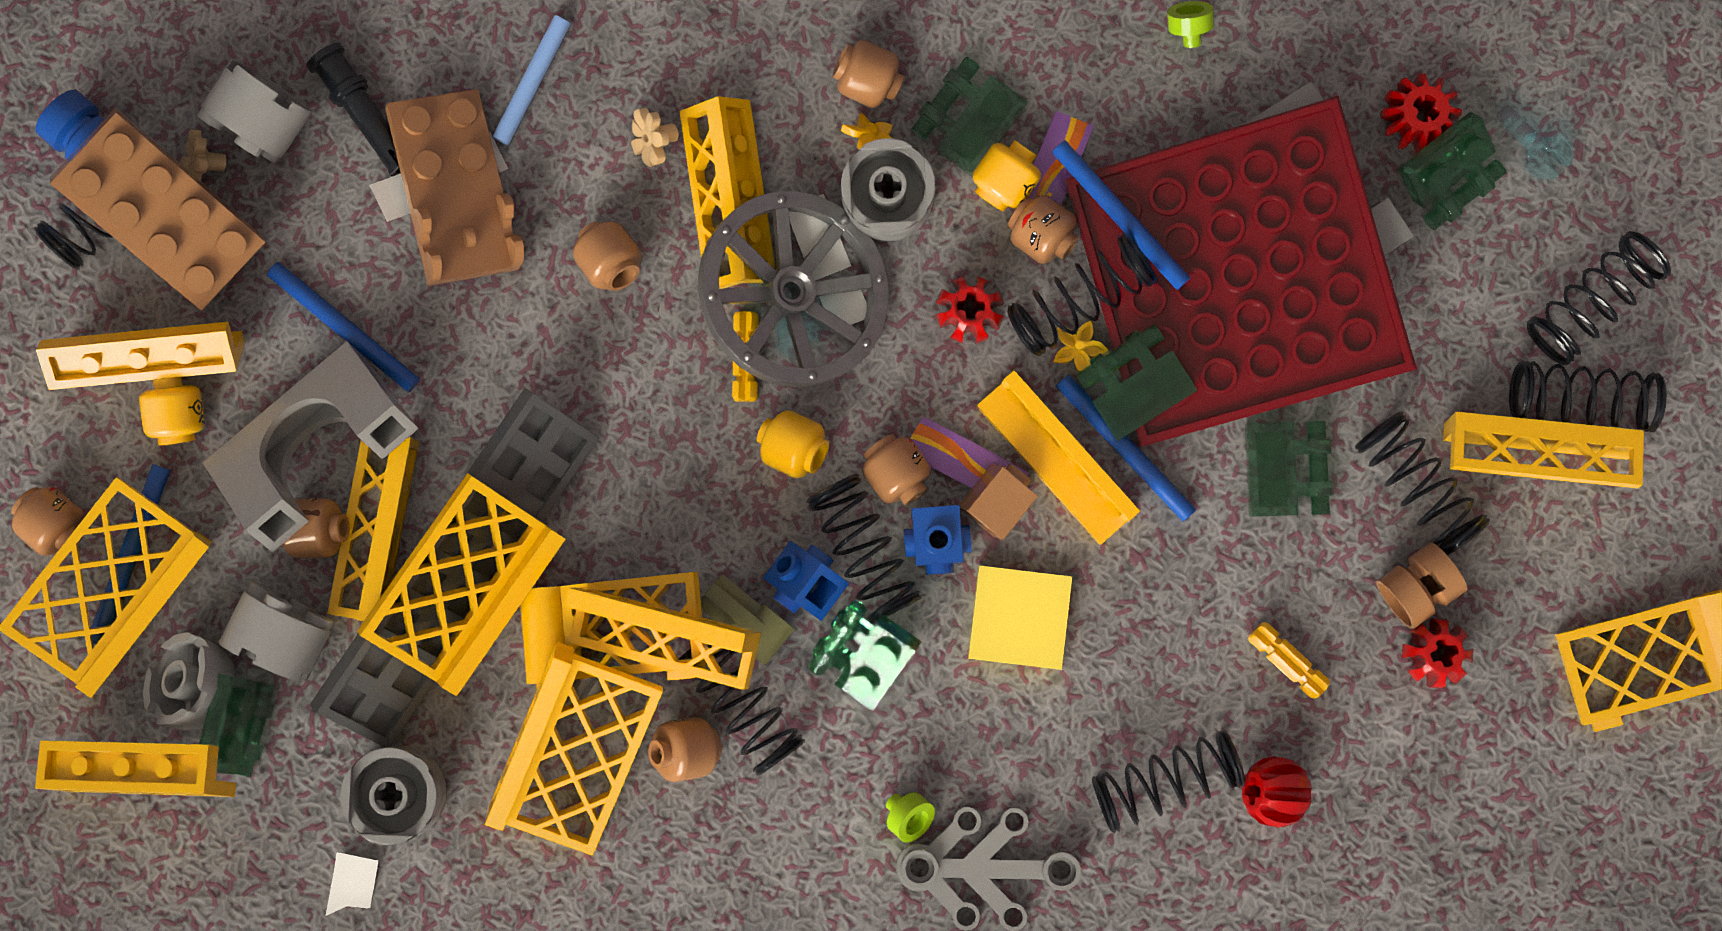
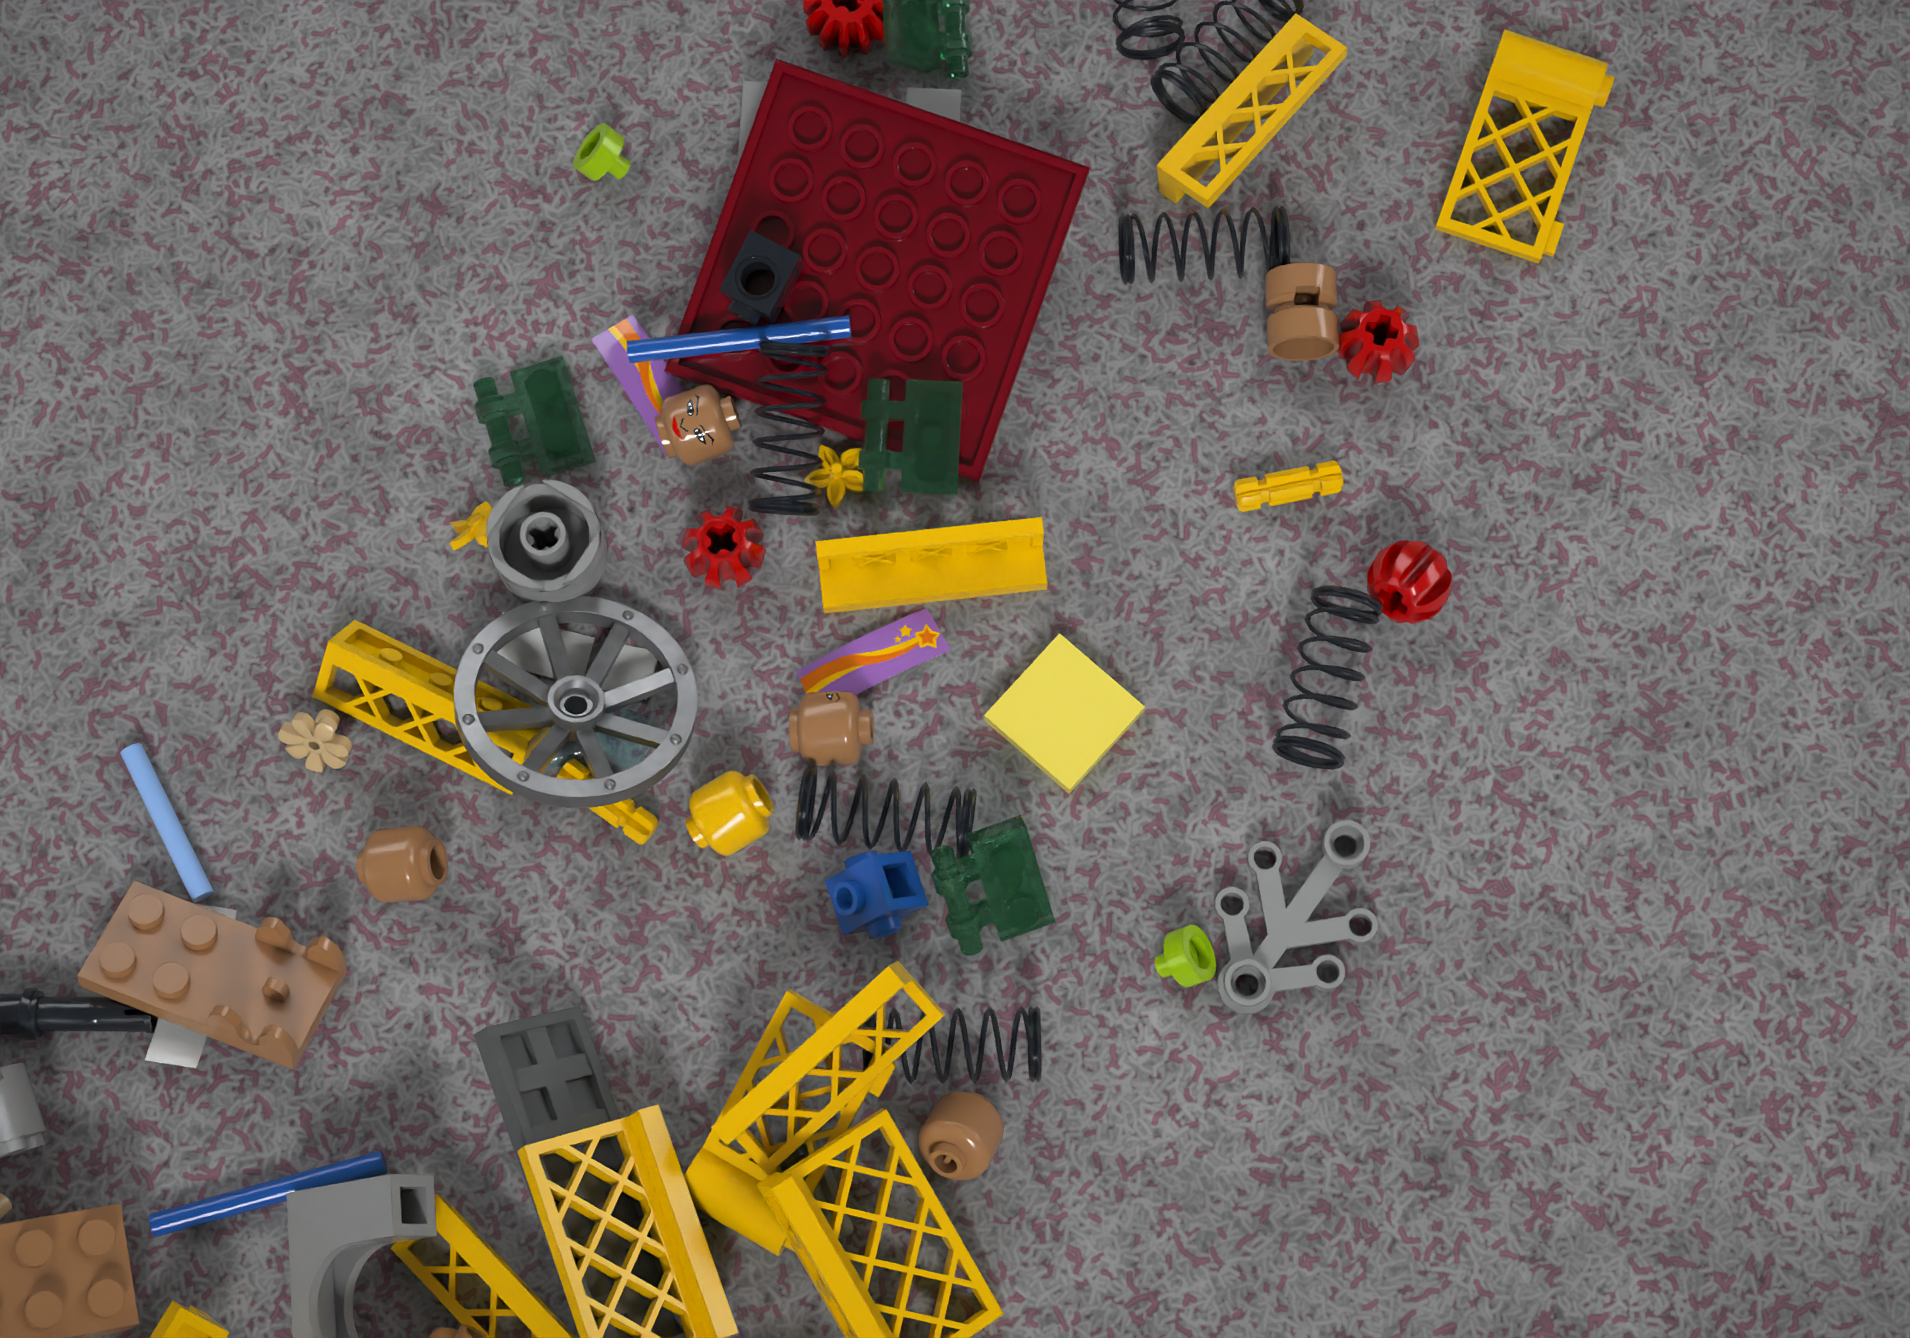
camera: 55 degrees left, 10 degrees down
(733, 606) = (841, 983): olive piece -> none
(867, 73) = (417, 486): medium nougat head -> none
(937, 520) = (922, 715): blue brick -> none
(999, 499) = (932, 650): medium nougat brick -> none
(1006, 175) = (618, 423): yellow head -> none
(1127, 450) = (970, 497): blue bar -> none
(1191, 206) = (754, 255): none -> black brick
(1272, 469) = (1089, 374): clear green plate -> none

